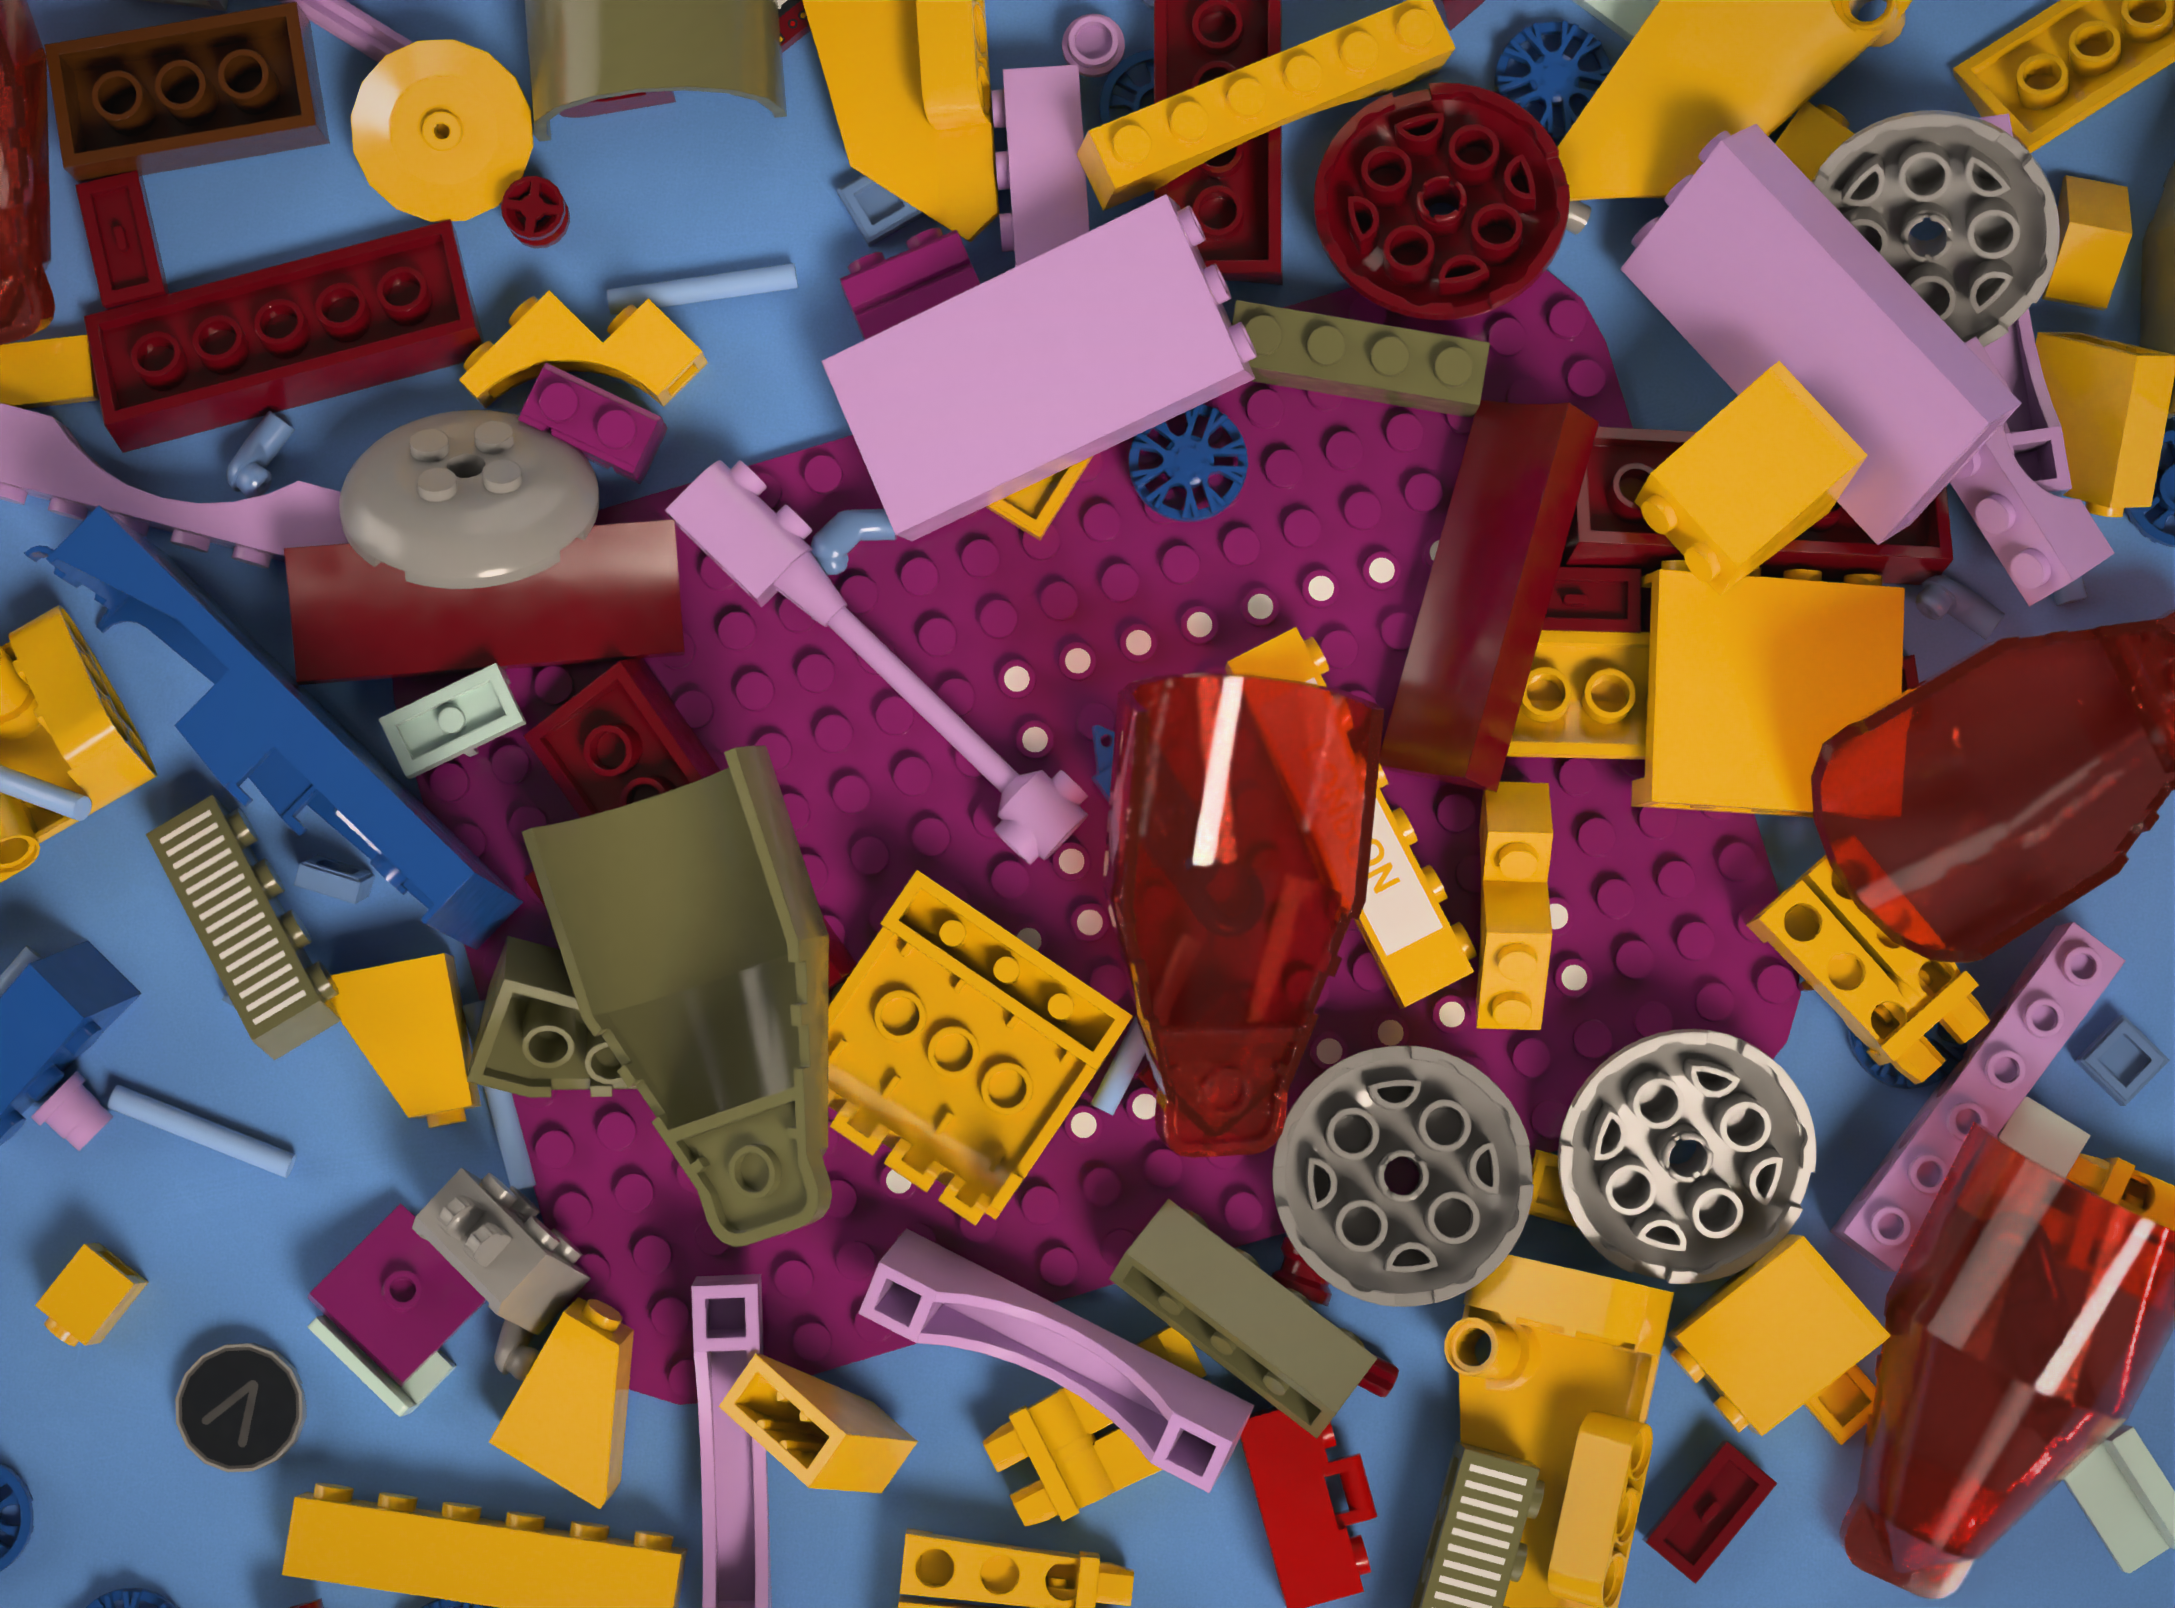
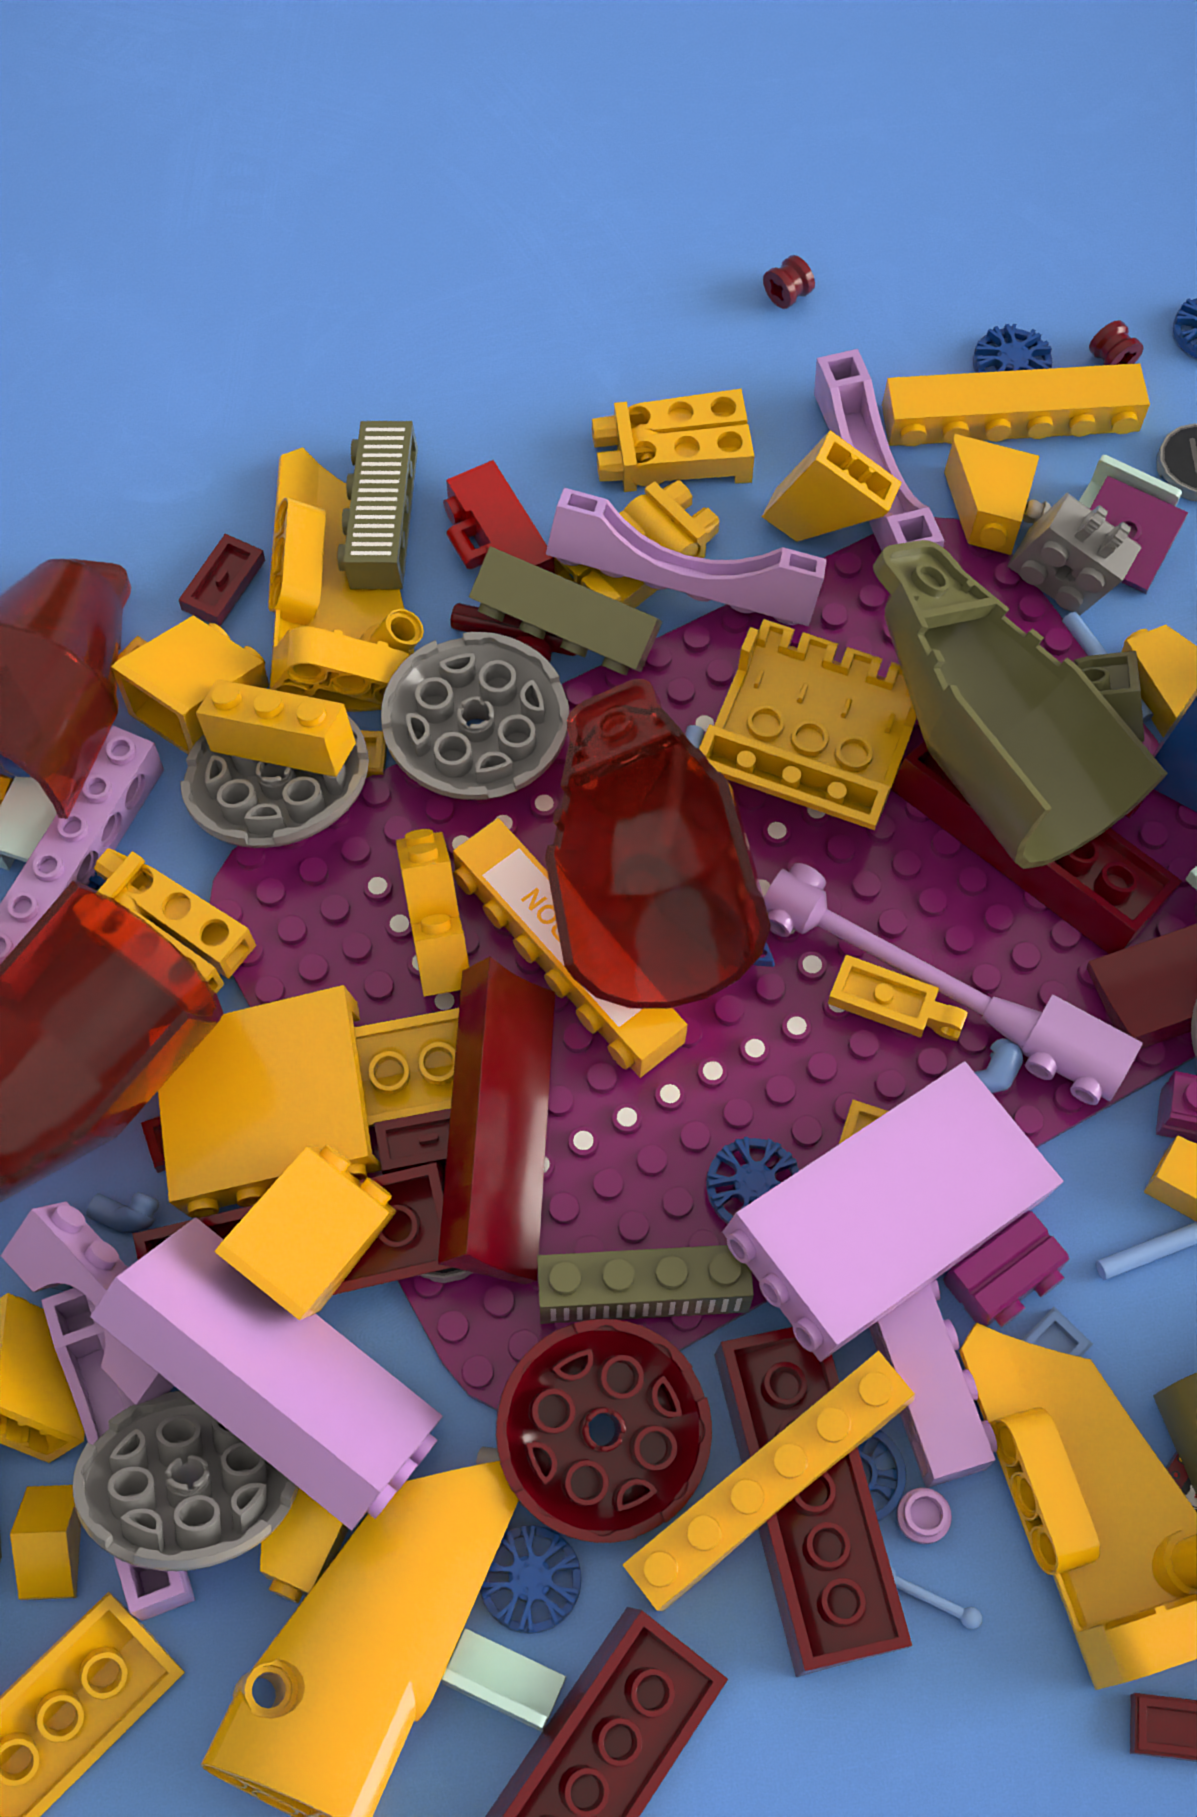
camera: 165 degrees right, 20 degrees down
(952, 655) = (894, 1000): none -> yellow plate
(1678, 1201) = (276, 727): none -> yellow brick

